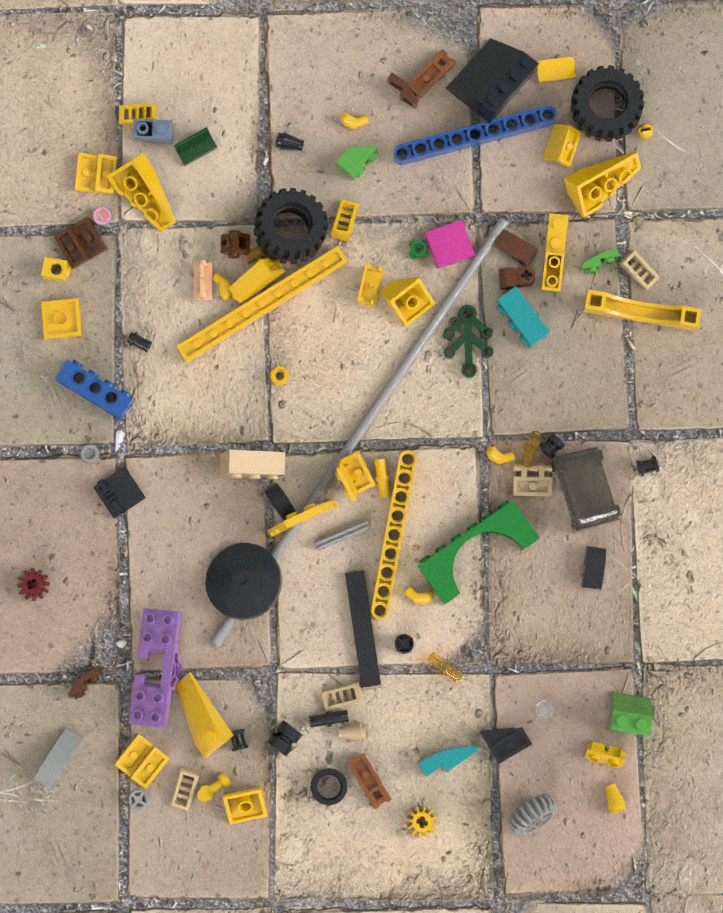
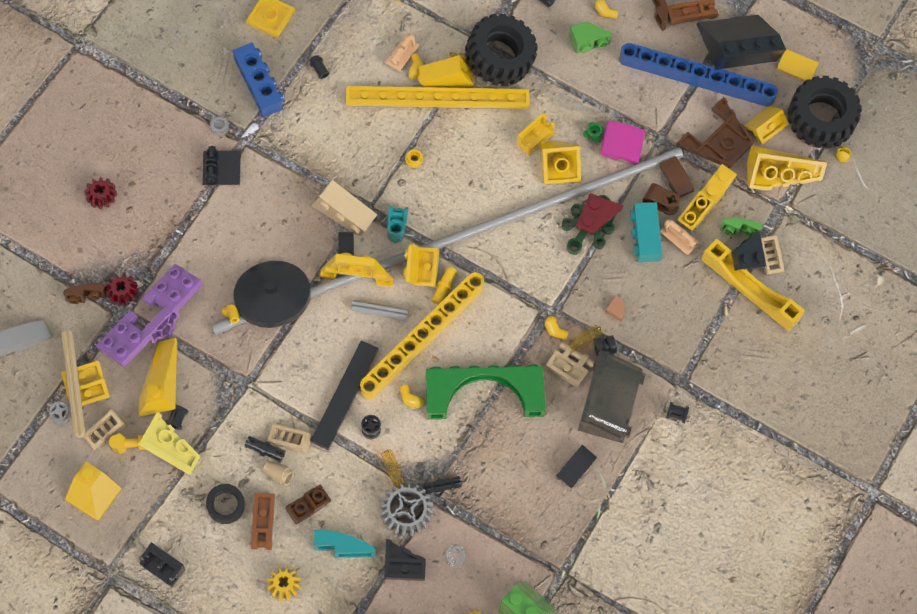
camera: 25 degrees right, 15 degrees down
(118, 653) = (118, 284): none -> dark red gear
(134, 769) = (73, 384): none -> tan axle
(213, 847) = (92, 491): none -> yellow slope
(222, 619) = (231, 312): none -> yellow arm
(235, 244) = (447, 39): reddish brown brick -> none
(245, 805) = (144, 472): yellow slope -> none
(248, 769) = (167, 445): none -> light yellow wing
(284, 738) = (216, 439): black wheel -> none
(302, 443) = (396, 221): none -> teal piece
(312, 870) = (161, 564): none -> black hinge
(343, 232) = (539, 84): yellow slope -> none
(395, 742) = (308, 504): none -> reddish brown slope
(463, 687) = (413, 504): none -> light grey gear
(470, 328) = (597, 213): none -> dark red wing
(494, 654) = (442, 485): none -> black axle
(539, 185) = (725, 144): none -> reddish brown wing
(539, 403) = (616, 308): none -> nougat tile
(552, 302) = (679, 237): none -> light nougat hinge
(623, 283) = (749, 253): none -> black wing

